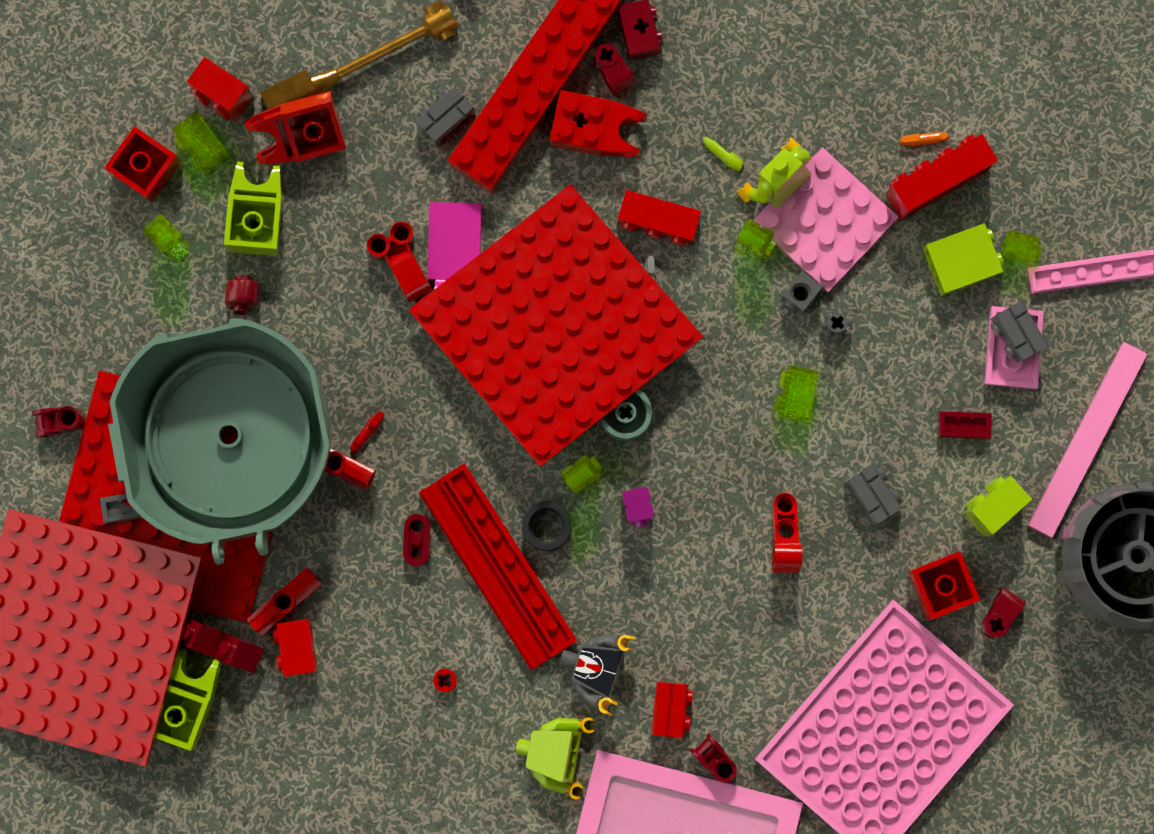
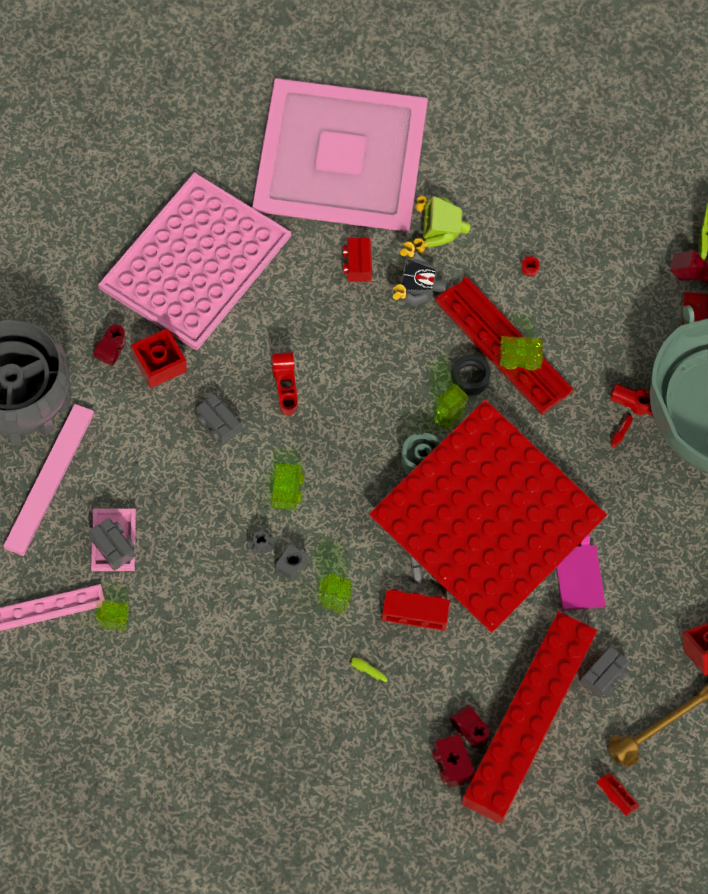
camera: 170 degrees right, 20 degrees down
(270, 613) = (654, 312): red piece -> none
(296, 647) = (645, 275): red brick -> none
(401, 261) = (620, 556): red piece -> none
(415, 540) = (569, 358): dark red plate -> none
(480, 542) = (521, 352): none -> clear neon green brick
(603, 122) = (475, 679): red brick -> none
(637, 507) = (403, 389): magenta brick -> none
(713, 757) = (323, 233): dark red piece -> none
(780, 176) = (317, 647): lime torso -> none
(827, 221) = (277, 625): bright pink plate -> none
(919, 139) = (205, 698): orange piece -> none
(940, 177) = (185, 660): red brick -> none
(963, 259) = (159, 602): lime brick -> none
(964, 425) = (149, 478): dark red plate -> none
(997, 505) = (121, 415): lime brick -> none

